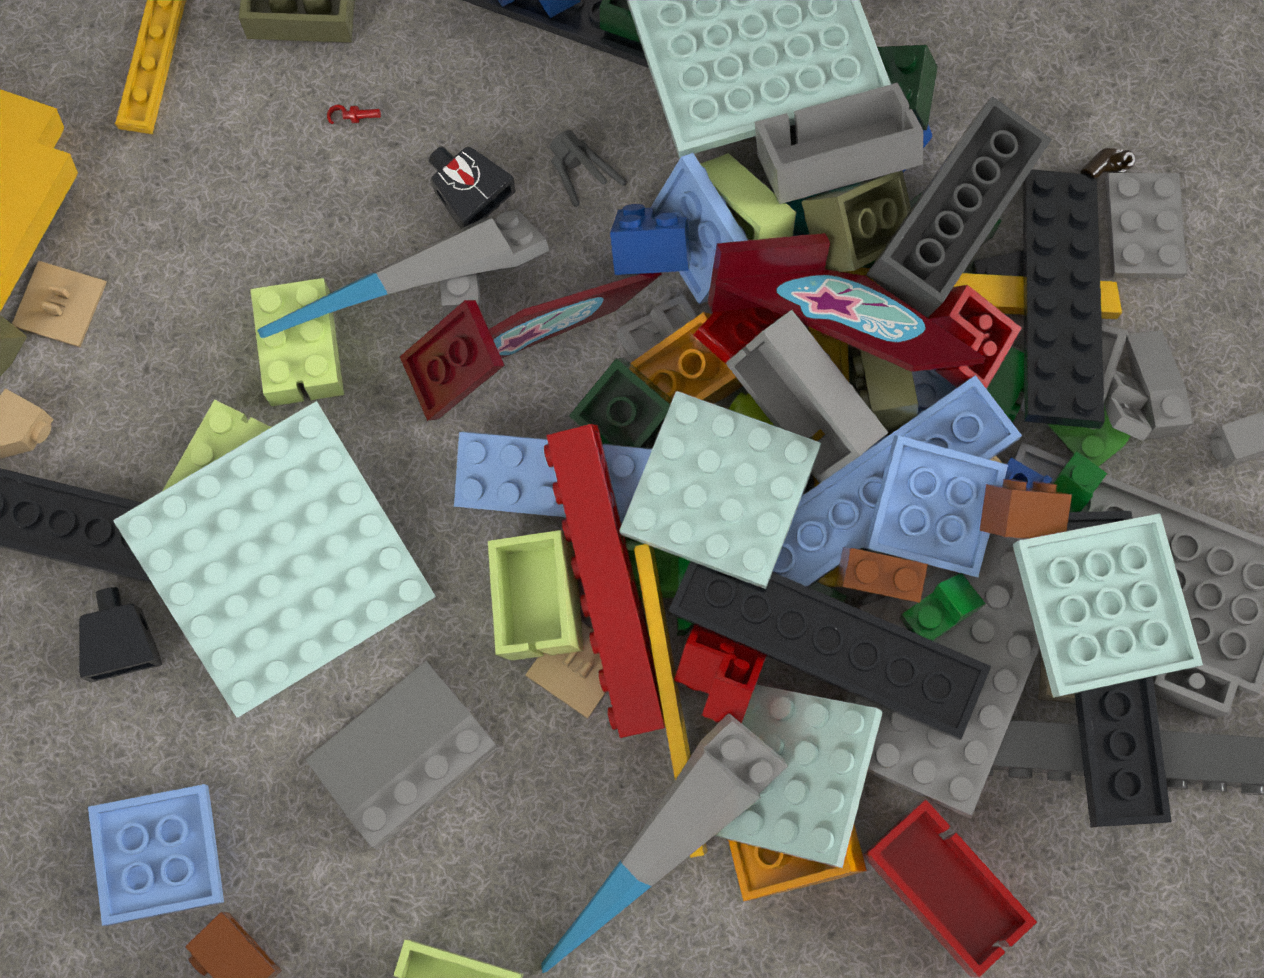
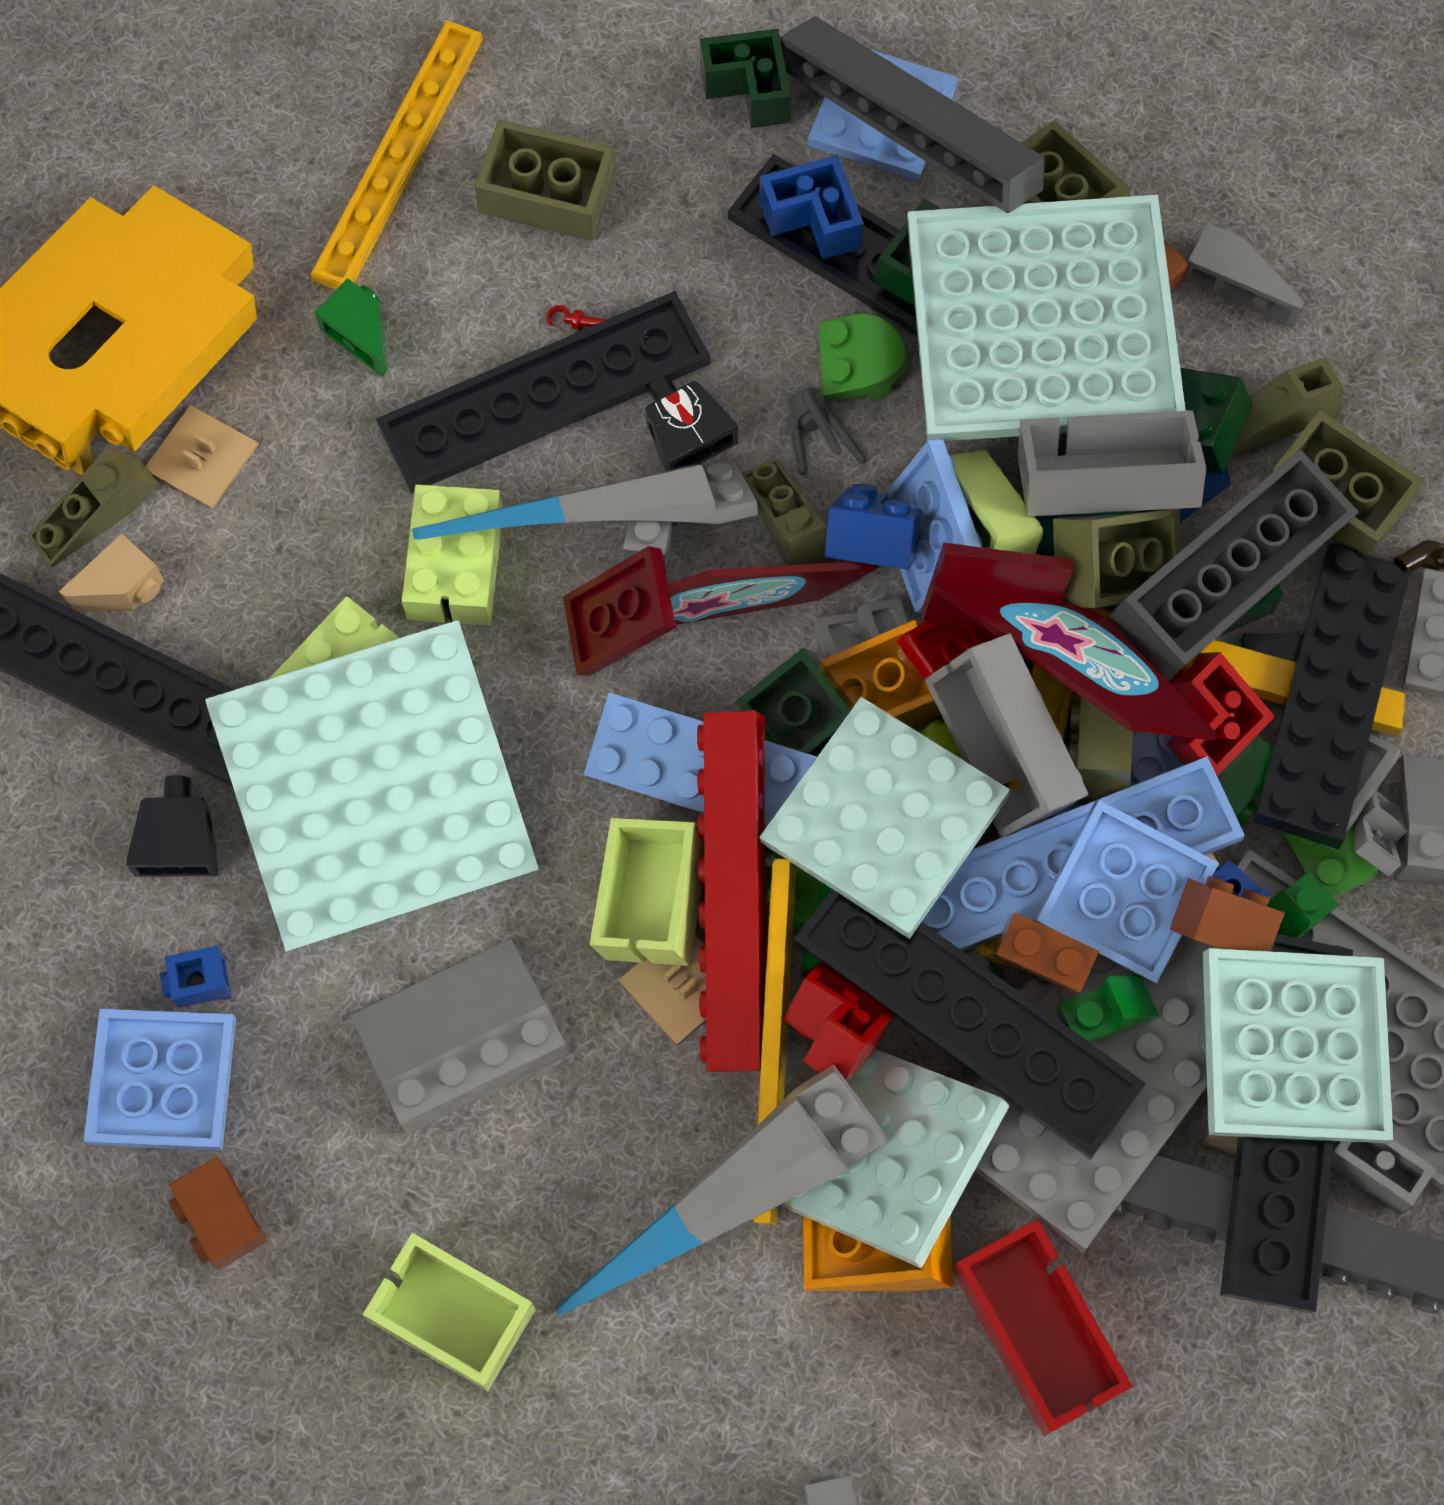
camera: 15 degrees right, 5 degrees down
(150, 754) = (182, 967): none -> blue brick
(164, 158) = (355, 323): none -> green slope
(339, 183) = (542, 391): none -> black plate
(574, 245) = (788, 515): none -> olive slope
(601, 95) = (860, 357): none -> bright green slope
(970, 57) = (1290, 404): none -> olive slope
(1043, 104) = (1365, 477): none -> olive brick

